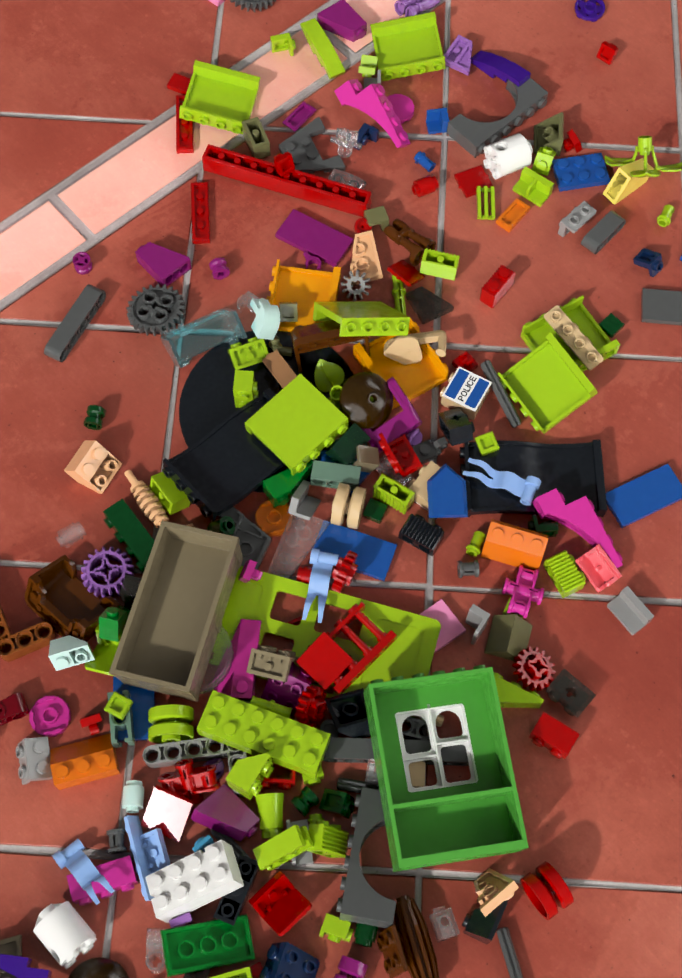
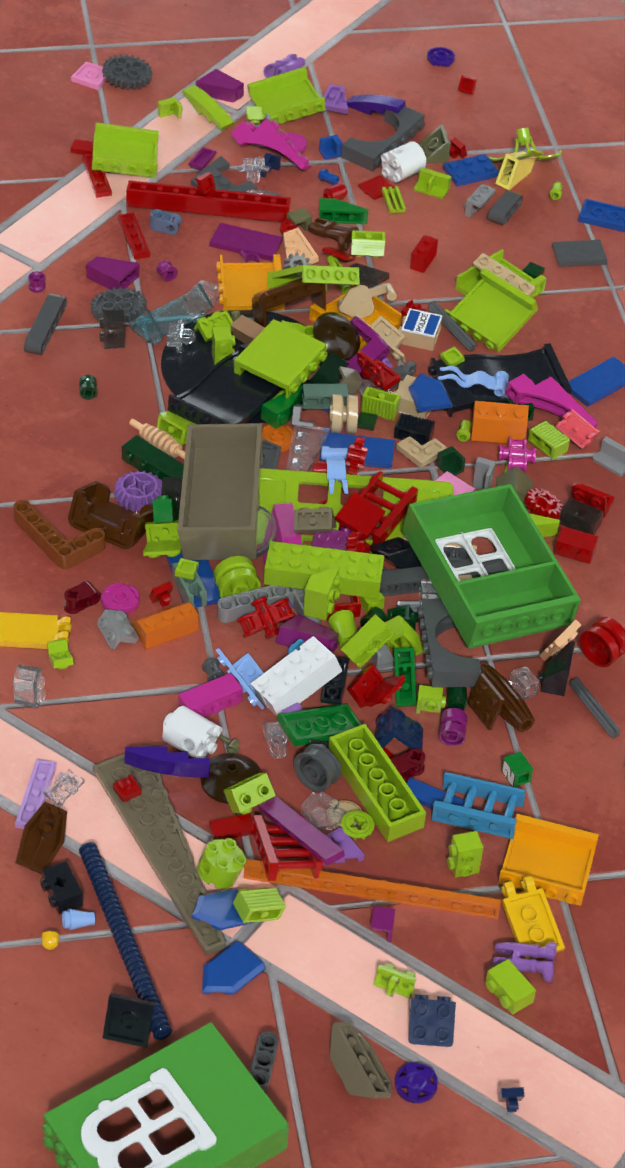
camera: 15 degrees left, 20 degrees down
(69, 652) = (127, 545): light aqua slope -> none
(70, 534) = (95, 470): clear brick -> none
(81, 868) = (192, 686): light blue flag -> none
(93, 466) = (99, 420): light nougat slope -> none
(110, 951) = (232, 745): none -> olive hand
(133, 796) = (217, 638): light aqua brick -> none
(138, 346) = (113, 329): none -> clear smoke brick
(167, 812) = (255, 640): tile -> none
(210, 361) = (176, 335): none -> clear hips
(238, 201) = (163, 221): none -> sand blue piece
(249, 572) = (271, 467): dark pink tile -> none
(256, 138) = (168, 172): olive brick -> none
(266, 320) = (226, 294): light aqua brick -> none
(288, 311) = (242, 290): olive plate -> none
(318, 890) = (406, 665): none -> green slope
(420, 212) = (341, 211): none -> green slope
(421, 570) = (418, 453): none -> tan plate
(424, 396) = (390, 335): none -> tan bracket
(448, 587) = (450, 461): none -> dark green panel
(456, 426) = (421, 349): black brick -> none
(468, 568) = (469, 444): dark grey bush -> none
(513, 215) = (420, 206): orange tile -> none
(544, 160) = (436, 162): lime bracket -> none
(590, 670) = (592, 497): none -> red bracket
(650, 260) = (552, 221): dark blue bracket -> none

